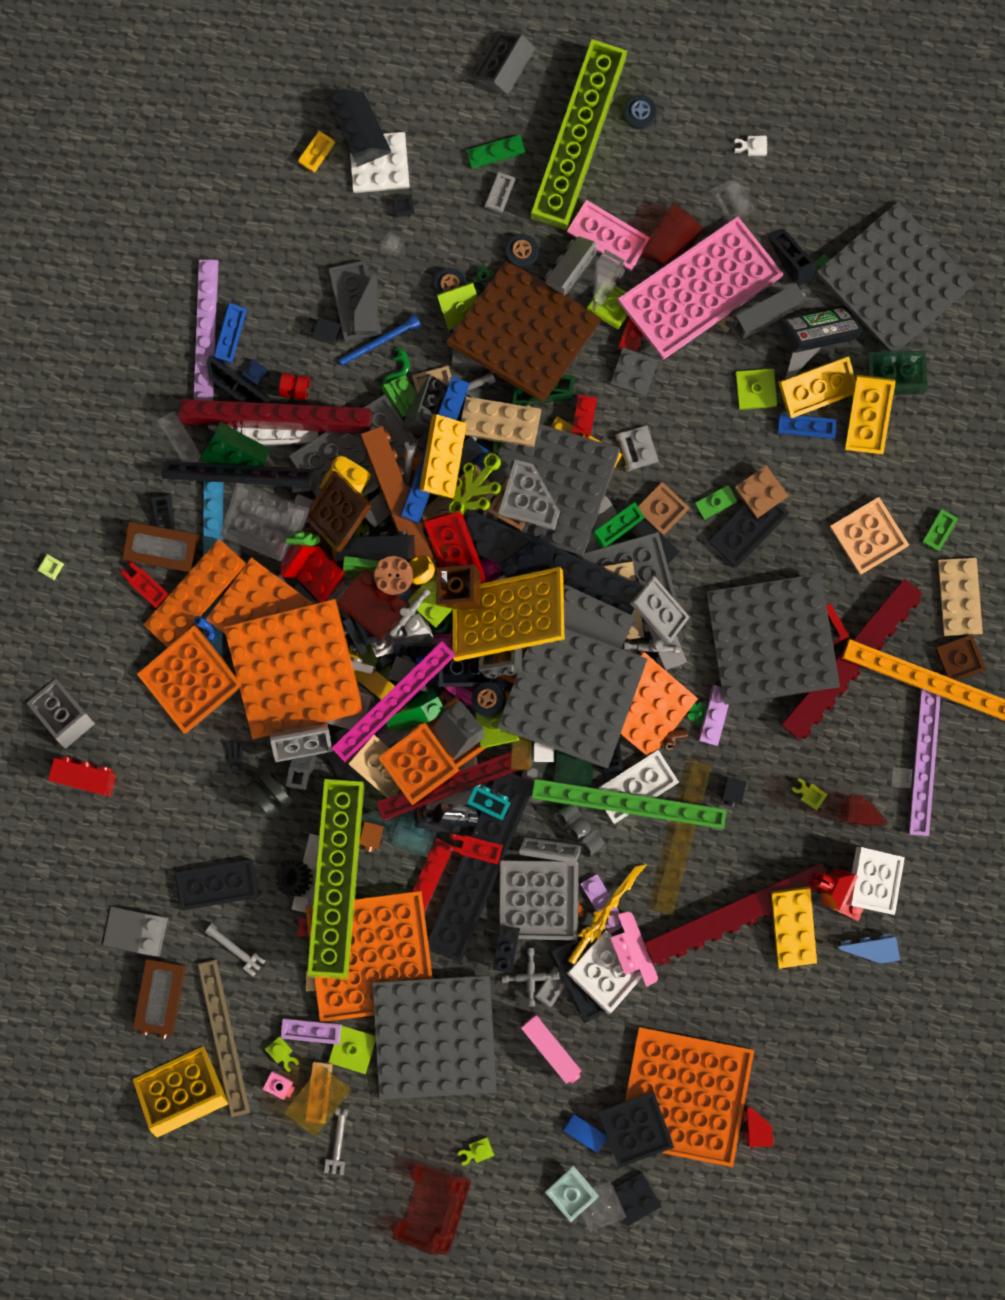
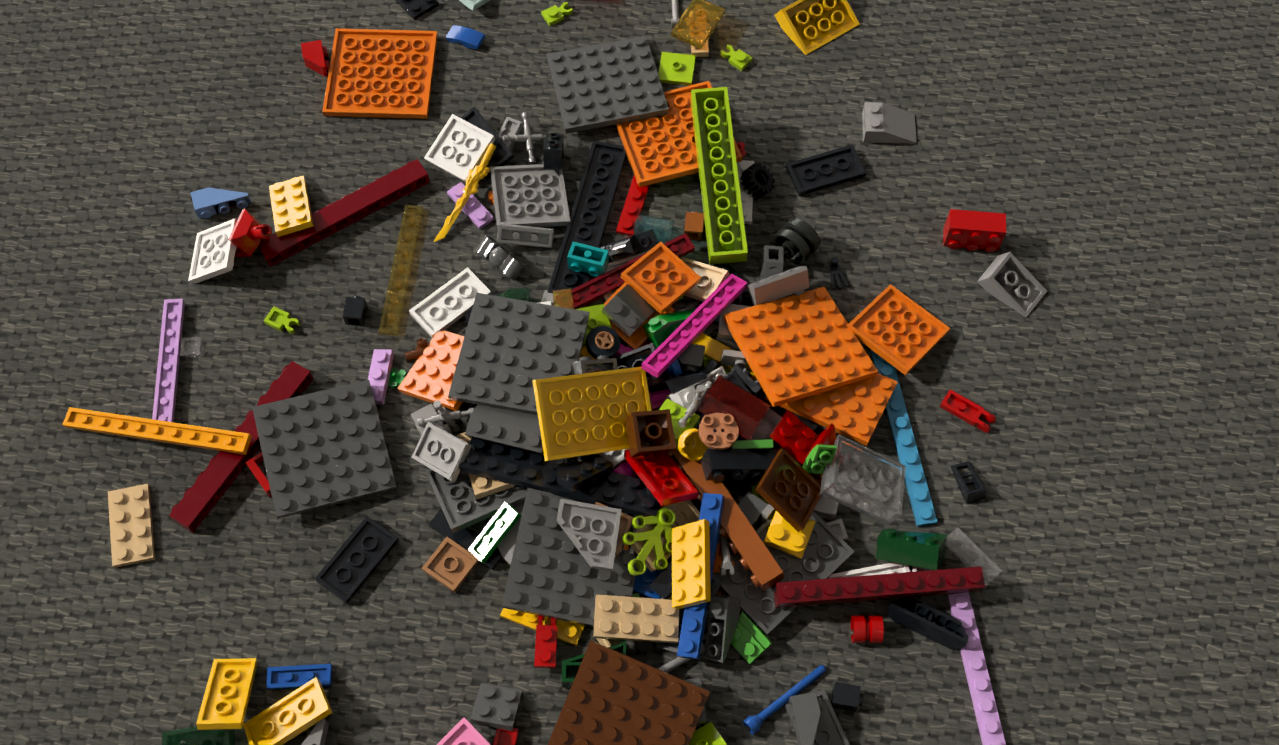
camera: 170 degrees right, 20 degrees down
(50, 567) = (1065, 414): yellowish green tile -> none
(159, 998) = (853, 79): reddish brown piece -> none
(160, 546) = (962, 445): reddish brown piece -> none
(195, 593) = (913, 407): orange plate -> none
(206, 625) = (896, 376): blue arm -> none
(223, 1038) = (790, 63): dark tan tile -> none
(229, 333) = (951, 678): blue plate -> none
(237, 474) = (902, 519): black plate -> none
(250, 961) = (779, 117): light grey hinge -> none
(255, 372) = (912, 641): dark blue plate -> none
(272, 1081) = (734, 33): bright pink brick -> none
(311, 1031) = (715, 73): lavender plate -> none
(402, 356) = (756, 684): green animal -> none
(442, 374) = (711, 669): tan tile -> none
(477, 848) = (595, 225): red hinge -> none
(551, 1049) = (502, 84): bright pink piece -> none
(629, 804) = (453, 281): bright green plate -> none
(632, 951) = (440, 166): bright pink plate -> none
(636, 1129) = (421, 39): black plate -> none
(642, 445) = (478, 627): light grey plate -> none
(716, 502) = (394, 581): bright green plate -> none
(756, 389) = (358, 711): lime plate -> none
(761, 492) = (345, 594): medium nougat plate -> none
(860, 812) = (229, 298): clear red slope -> none
(869, 536) = (227, 570): light nougat plate -> none
(940, 530) = (151, 588): bright green plate -> none
(960, 658) = (130, 463): reddish brown plate -> none

